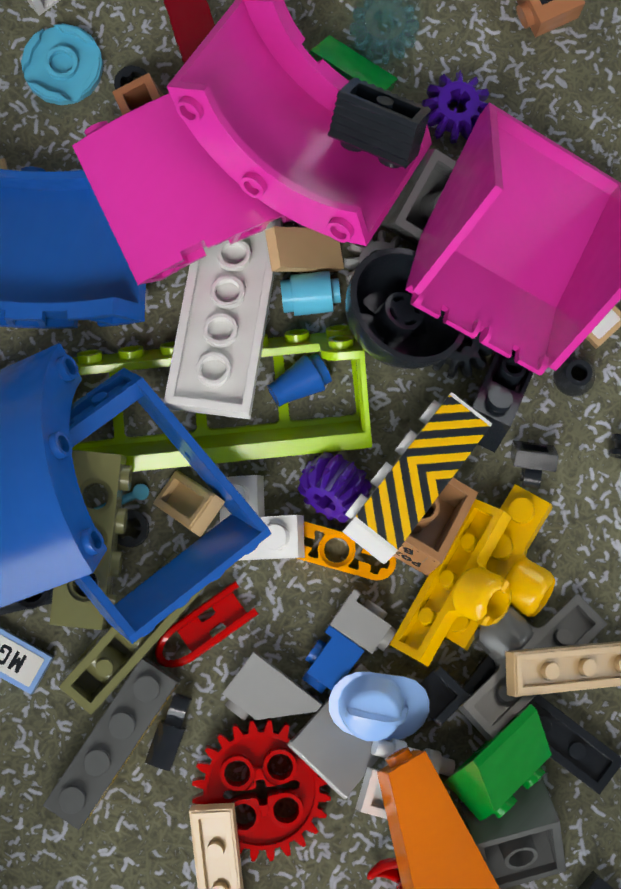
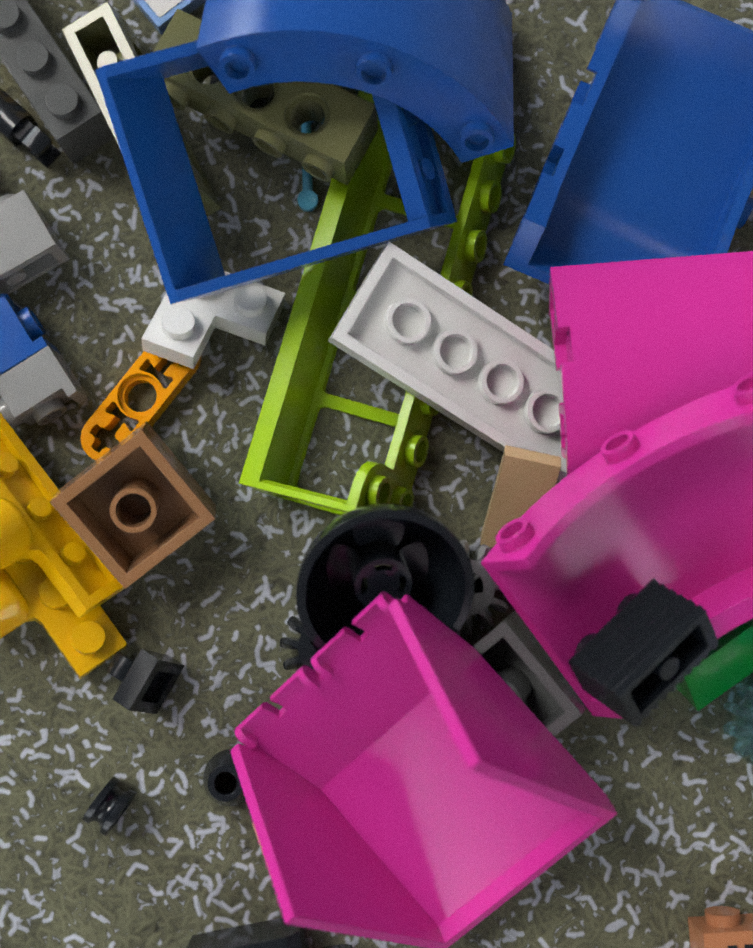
camera: 115 degrees right, 0 degrees up
(129, 541) = (260, 185): black bush -> none
(189, 503) = (260, 236): tan tile -> none
(196, 633) = (115, 197): red piece -> none
(300, 380) = (360, 431): blue cone -> none
(310, 293) = (463, 488): medium azure brick -> none
(332, 485) = (210, 419): dark purple gear -> none
(417, 478) = (164, 513): brick -> none
(458, 92) = (647, 754): dark purple gear -> none
(500, 397) = (230, 659): black slope -> none

